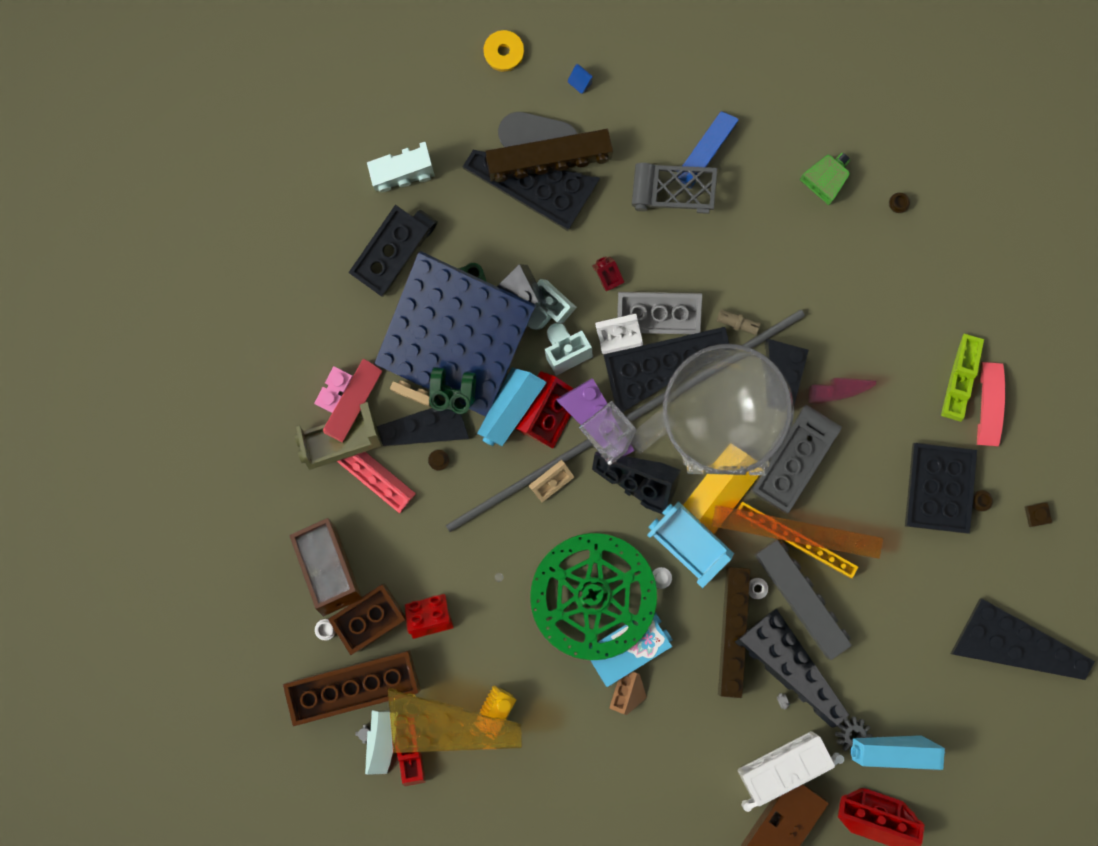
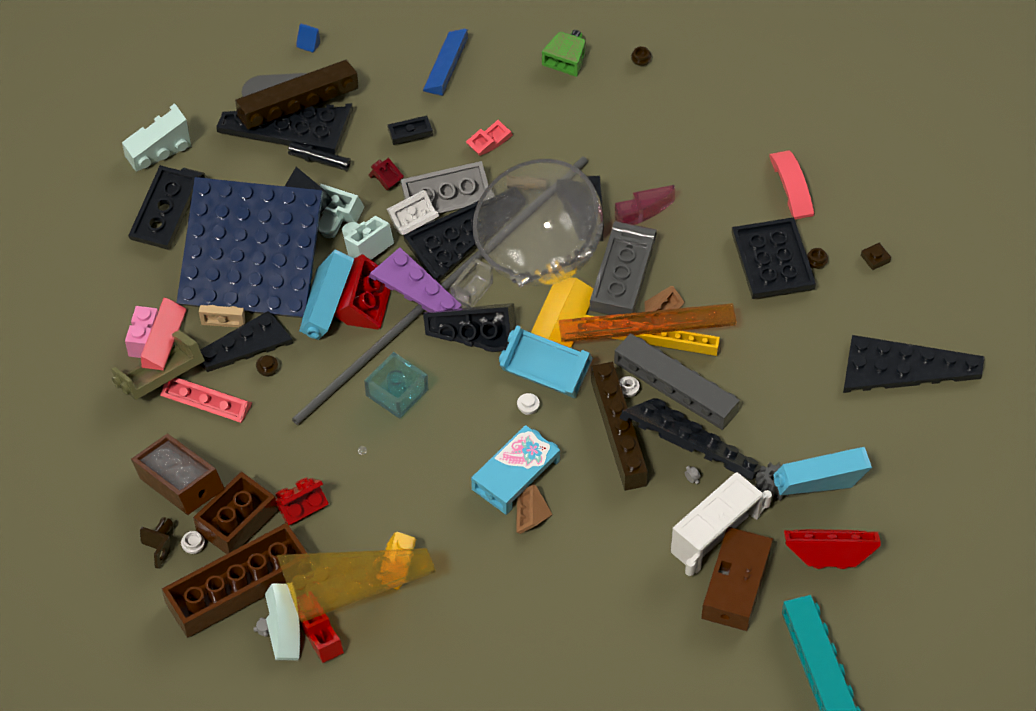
camera: 20 degrees left, 30 degrees down
(296, 616) = (158, 539): none -> dark brown bracket
(438, 386) = (264, 298): dark green piece -> none
(503, 39) = (228, 28): yellow tile -> none
(544, 226) = (311, 154): none -> black pin
(547, 526) = (396, 385): none -> clear light blue brick
(551, 481) = (392, 342): tan plate -> none
(591, 635) = (464, 433): green piece -> none
(609, 432) = (431, 285): clear slope -> none
(646, 187) = (398, 95): dark grey piece -> none
(647, 226) = (410, 130): none -> black plate
(719, 259) = (491, 138): none -> coral slope
(818, 508) = (664, 300): none -> medium nougat slope
(962, 377) = (756, 169): lime slope -> none

